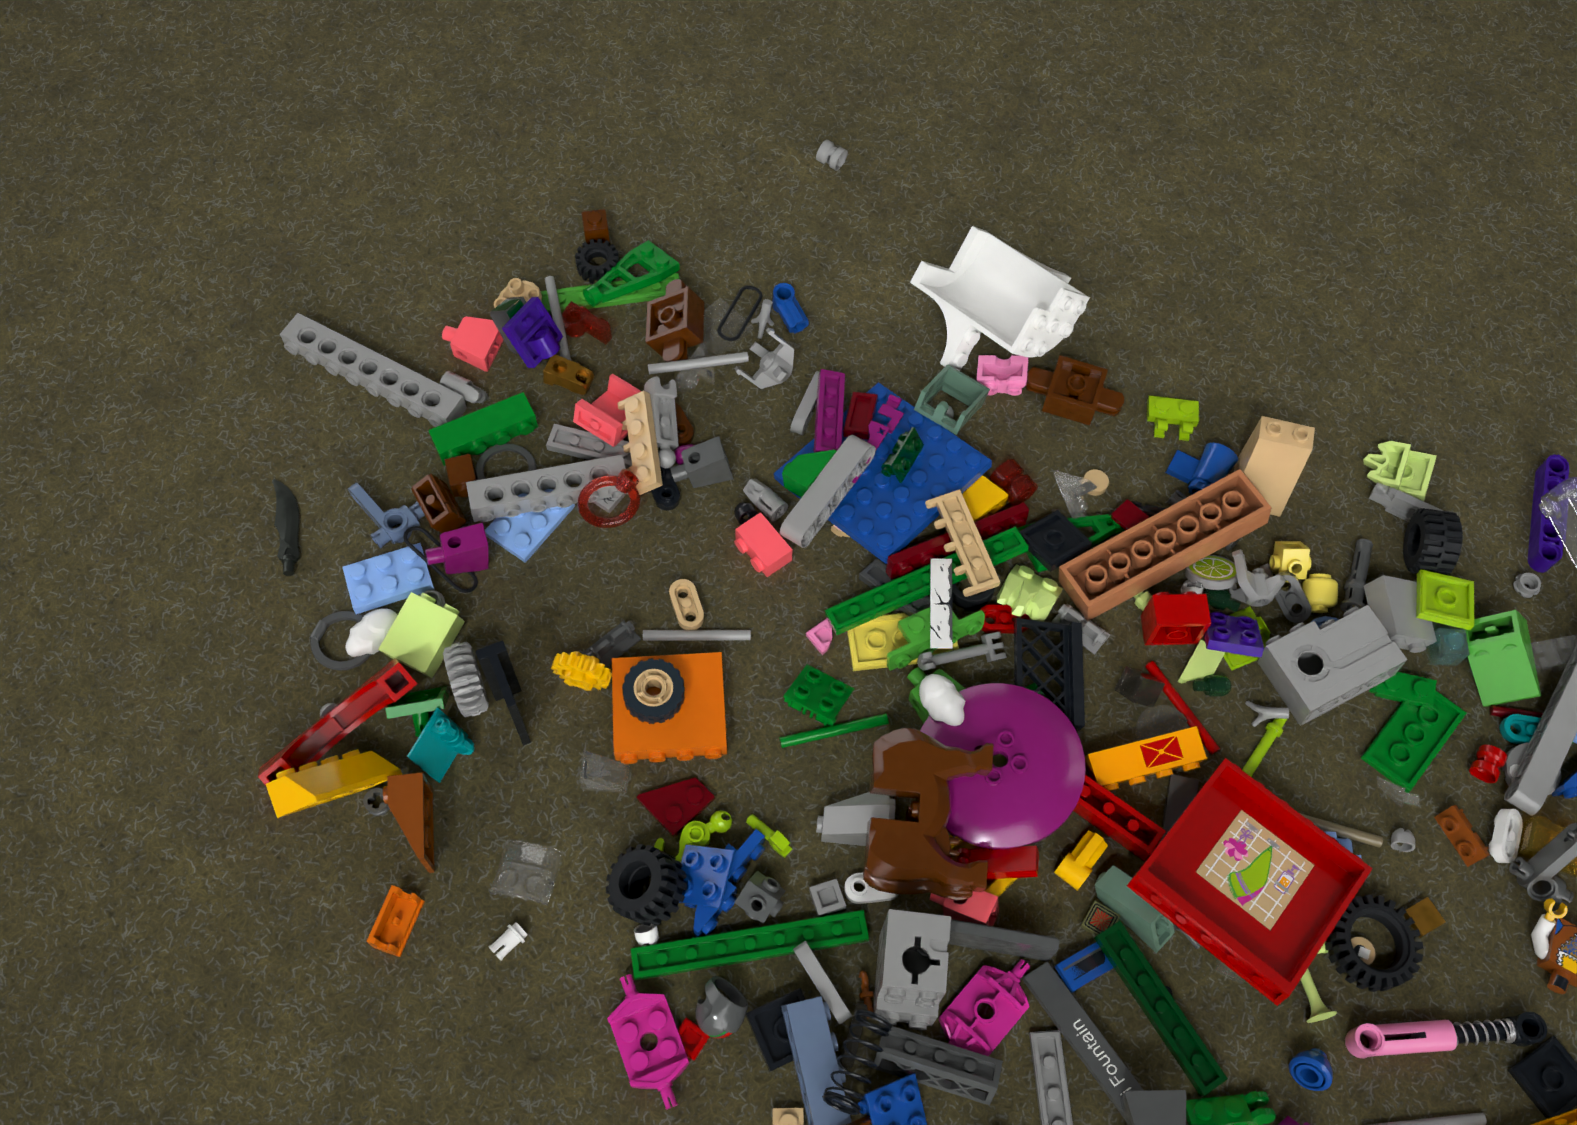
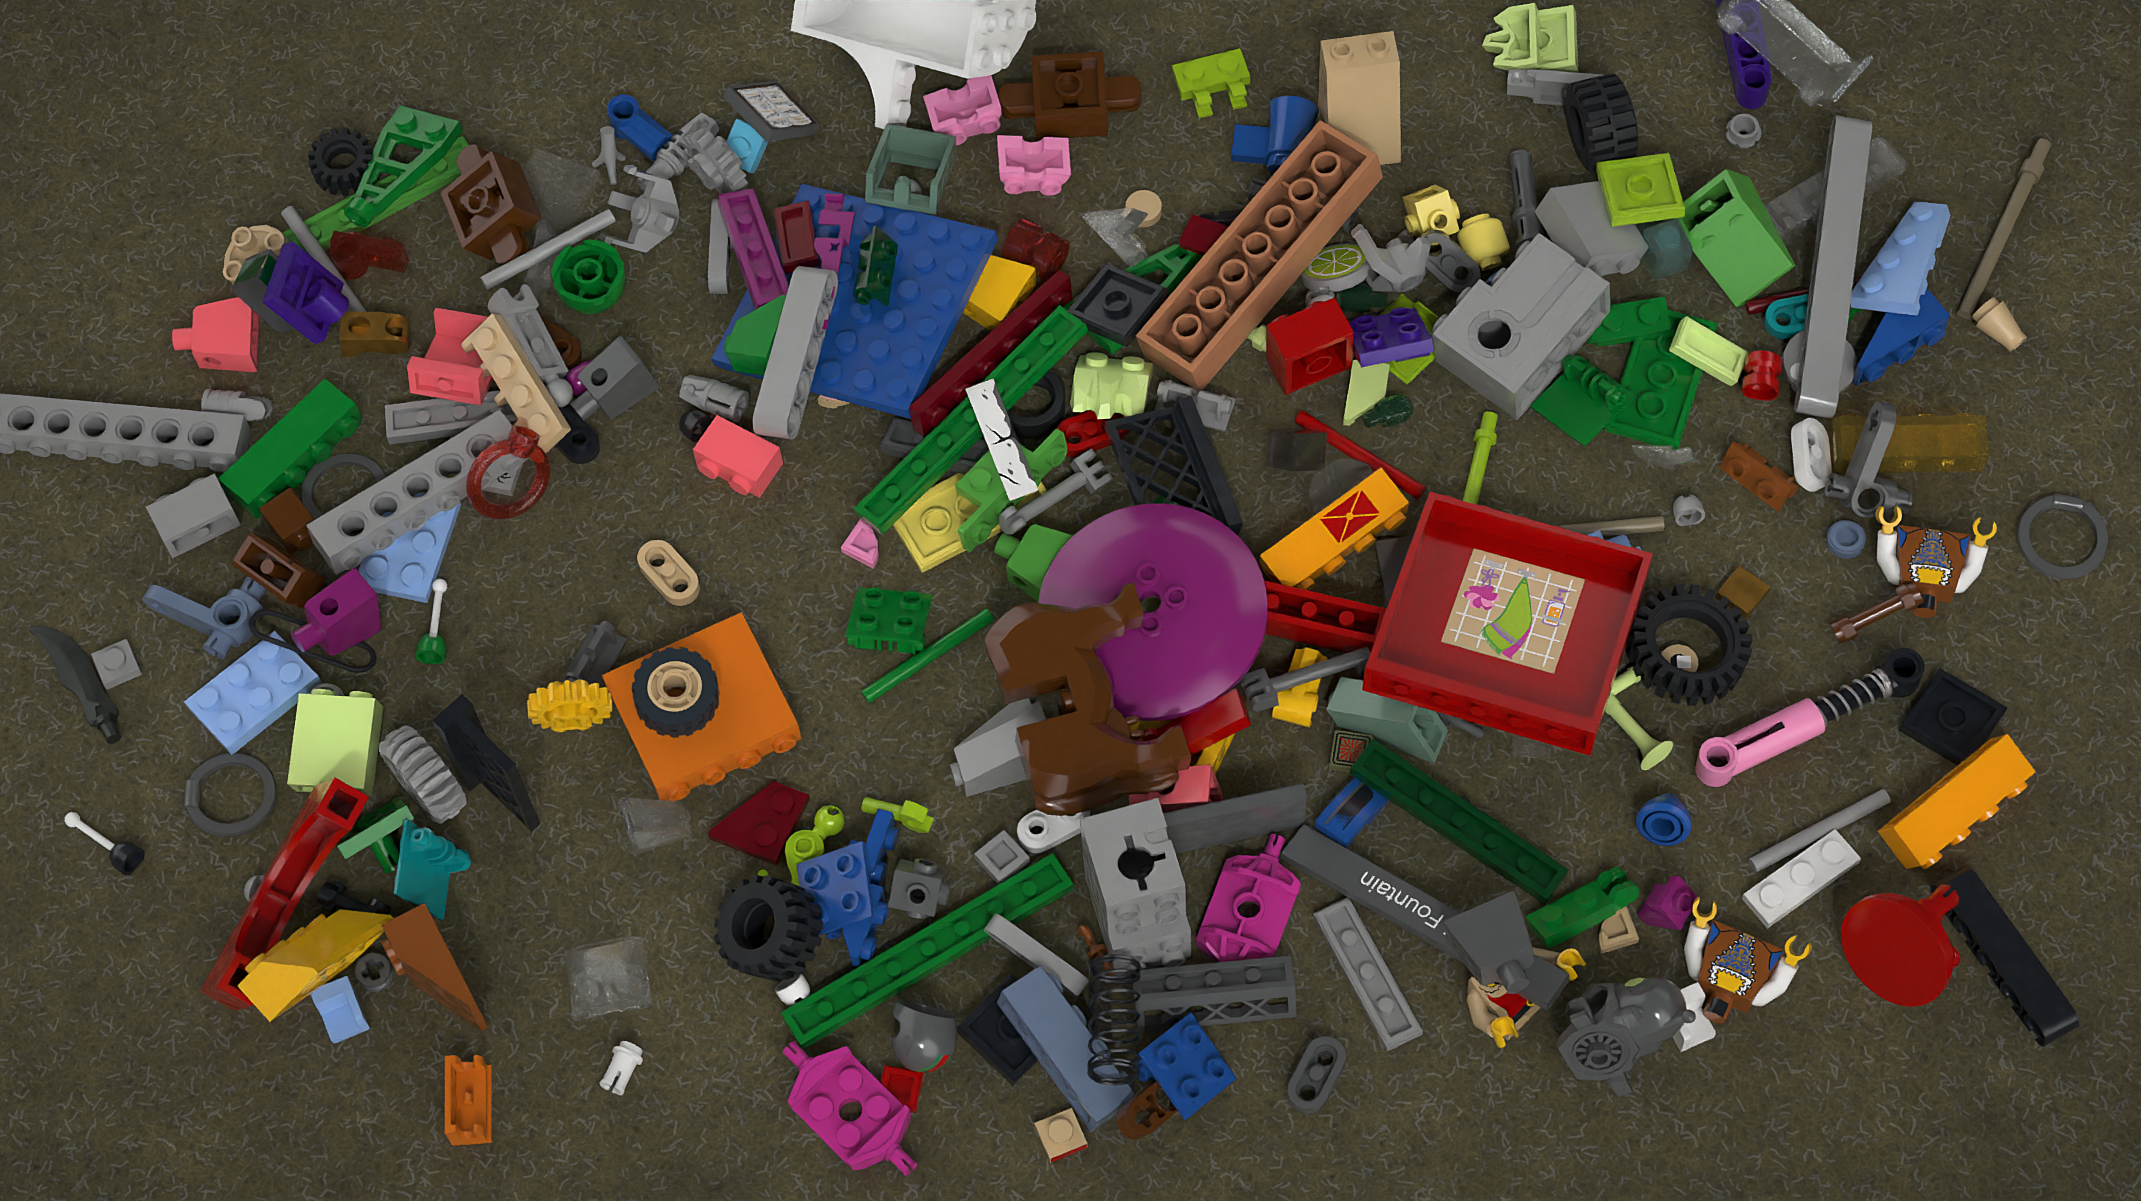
camera: 15 degrees left, 0 degrees up
(257, 654) = (124, 855): none -> black hinge
(313, 525) = (116, 664): none -> light grey plate
(343, 819) = (340, 1009): none -> light blue panel
(370, 632) = (264, 769): white arm -> none
(374, 738) = (333, 897): none -> black bar
(403, 447) = (193, 515): none -> light grey brick
(513, 593) = (431, 646): none -> green hinge
(595, 225) = (318, 113): reddish brown brick -> none
(696, 635) = (698, 606): light grey bar -> none
(717, 390) = (589, 277): none -> green cylinder
(730, 309) = (558, 158): black piece -> none
(811, 331) = (672, 158): none -> light grey hinge
(827, 347) = (714, 161): none -> light grey gear
(853, 343) = (746, 144): none -> medium azure bracket
(877, 328) = (771, 110): none -> tile
(942, 699) = (1049, 559): white arm -> none
(965, 541) = (1002, 349): tan hinge -> none
(1033, 427) = (1033, 165): none -> bright pink cylinder
(1055, 853) = (1263, 691): none -> dark grey hinge
(1267, 713) = (1469, 419): light grey bar -> none
(1352, 731) = (1582, 400): none -> green hinge
(1455, 731) = (1708, 351): none -> yellowish green tile
(1512, 908) = (1846, 539): none -> sand blue tile
(1548, 973) = (1907, 597): none -> reddish brown bar

